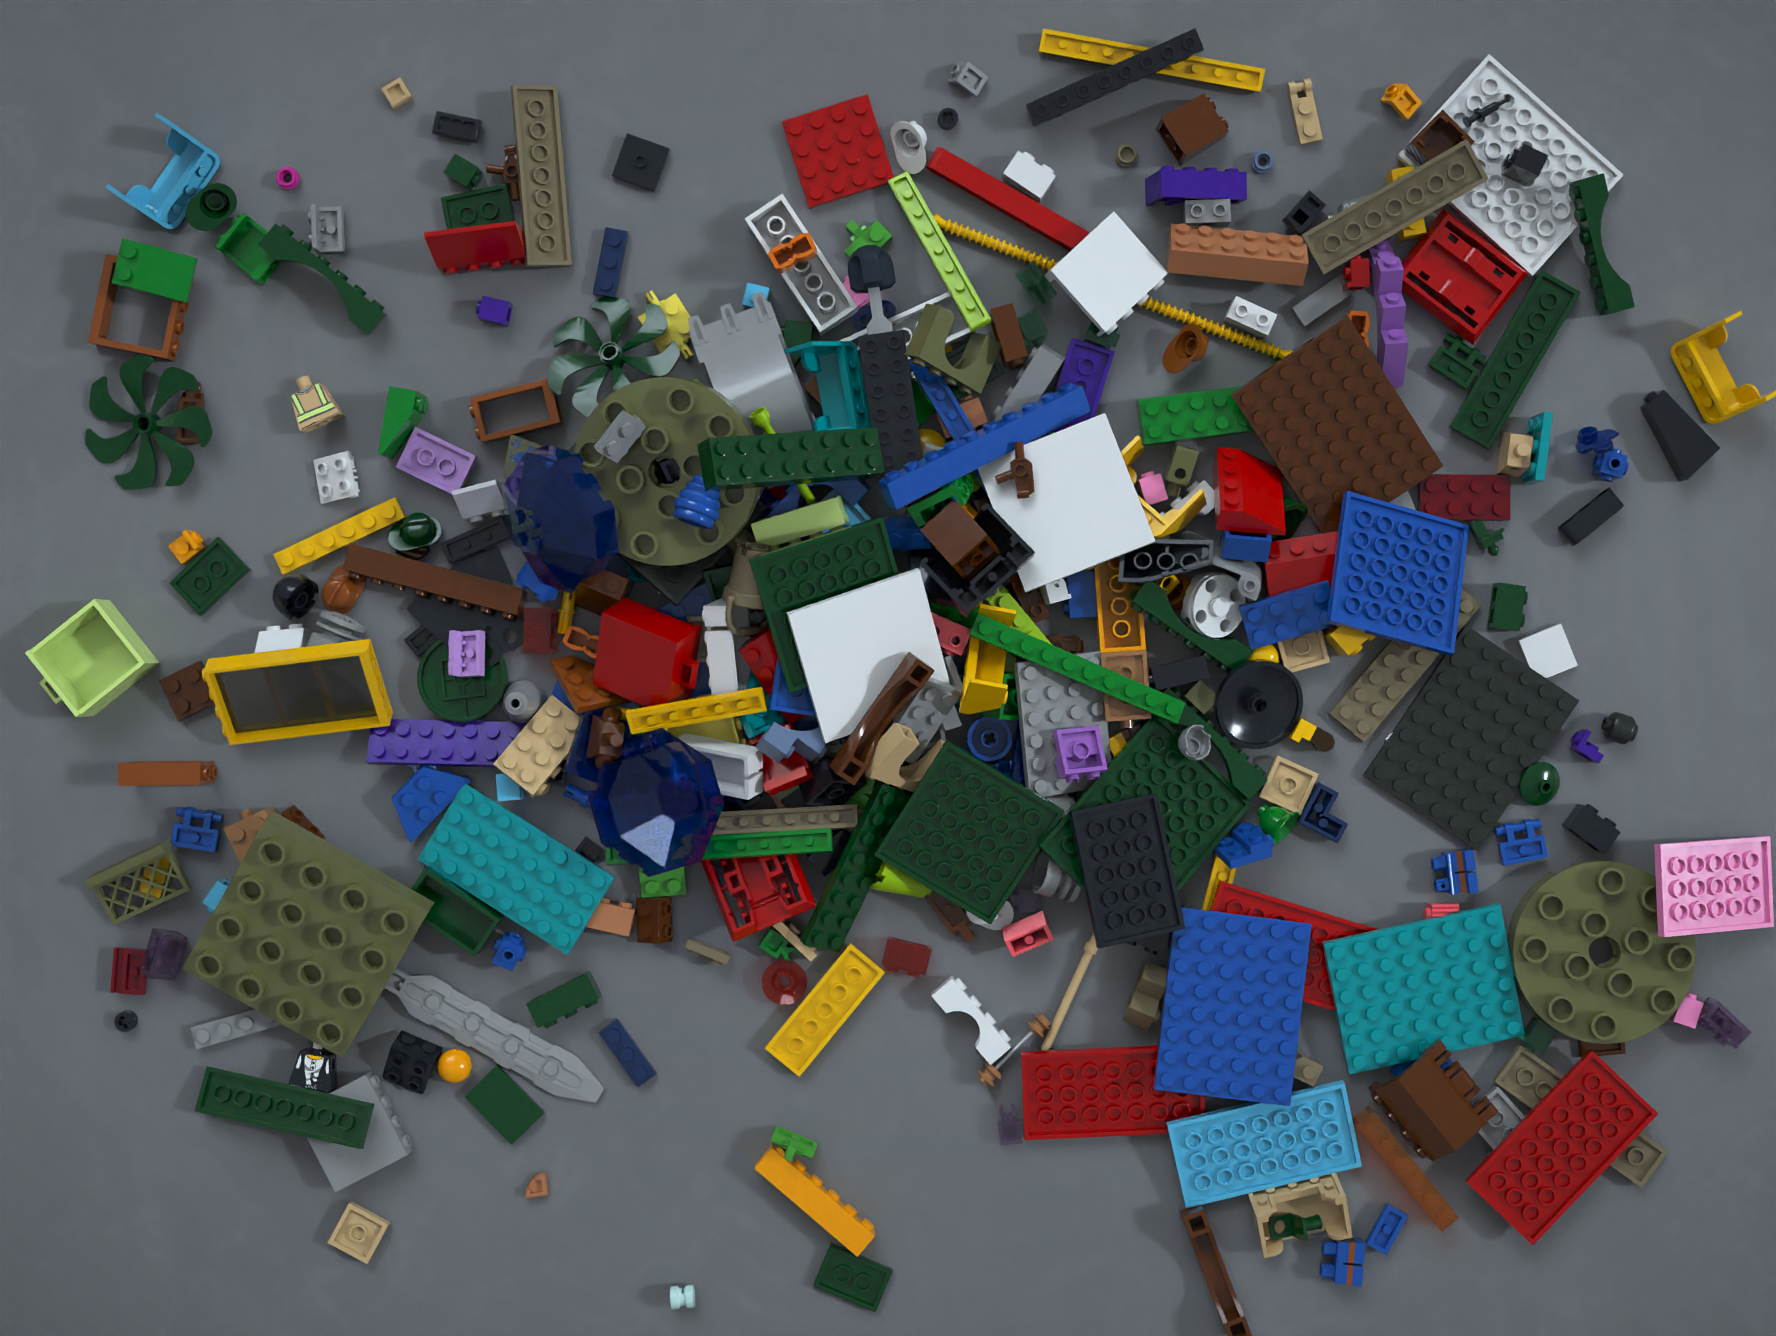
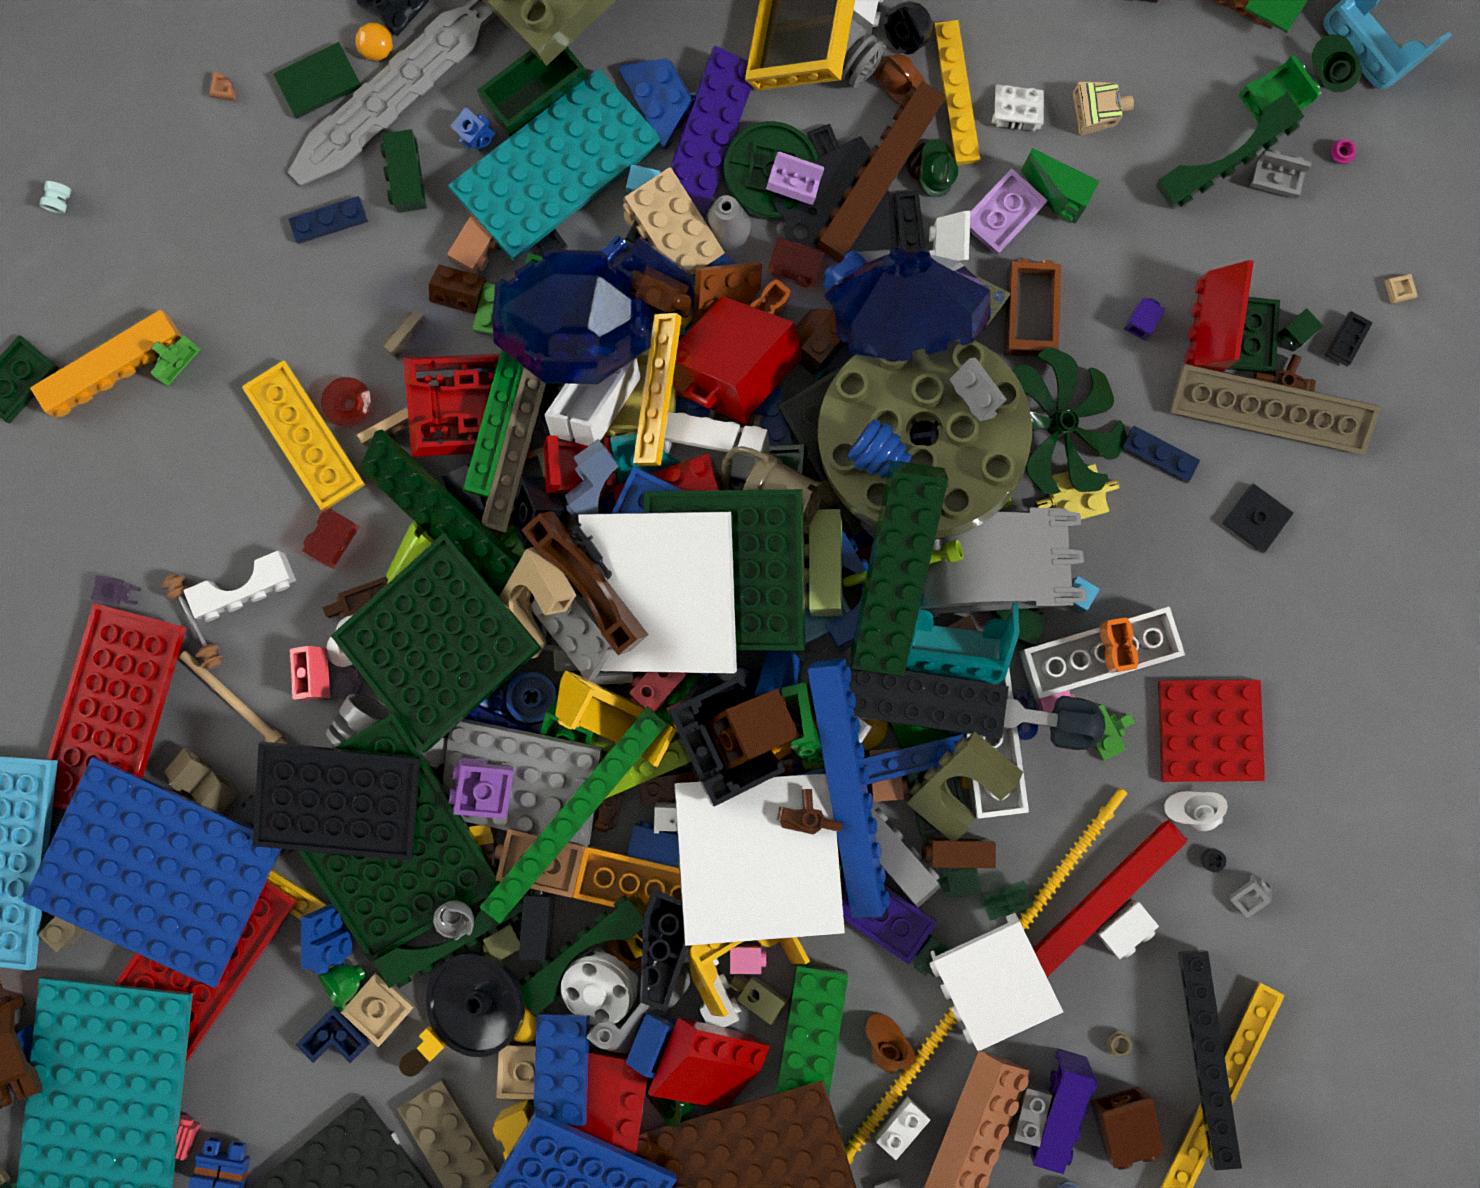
camera: 105 degrees right, 5 degrees down
(566, 611) = (807, 296): yellow axle -> none
(776, 944) = (387, 405): green plate -> none
(851, 723) = (590, 548): none -> black piece
(939, 251) = (1072, 806): lime tile -> none

